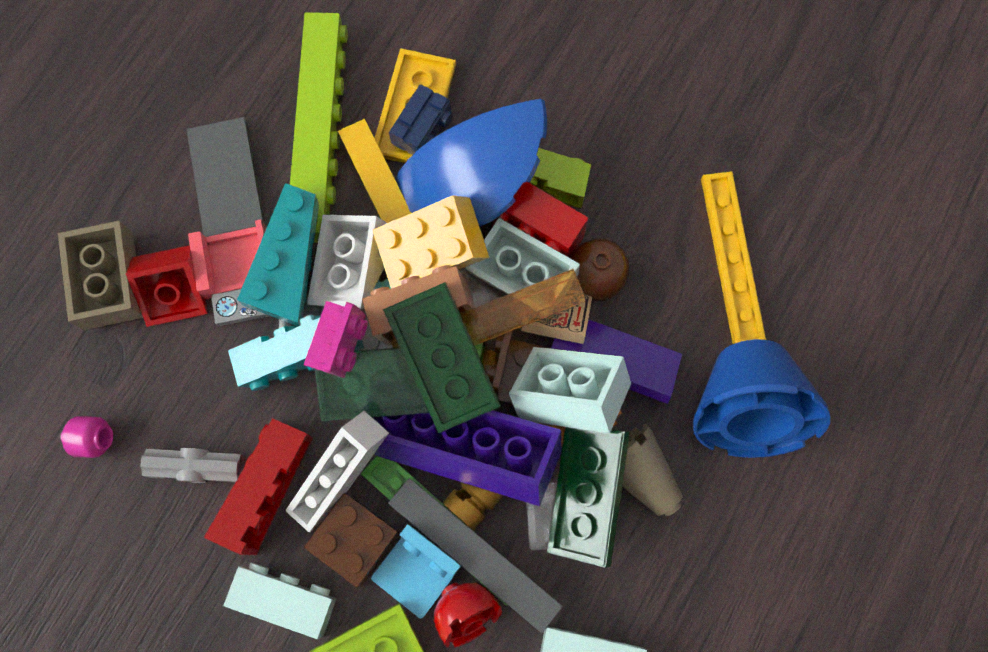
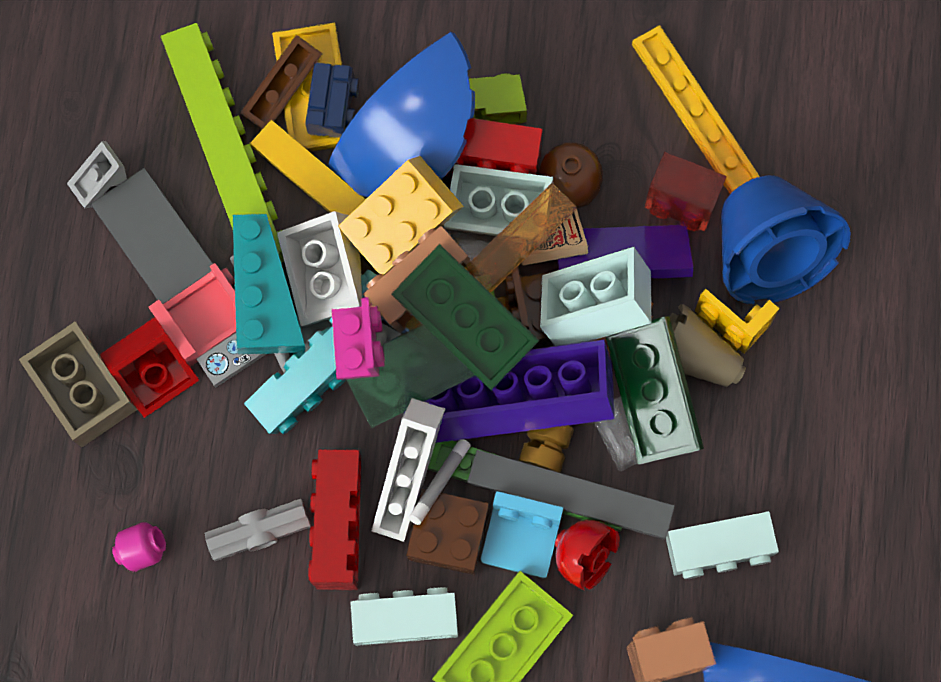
camera: 20 degrees left, 0 degrees up
(201, 106) = (97, 175): none -> light grey slope
(361, 494) = (439, 482): none -> light grey bar
(387, 90) = (281, 82): none -> reddish brown slope
(684, 469) = (735, 331): none -> yellow bracket
(692, 325) = (684, 192): none -> clear red brick

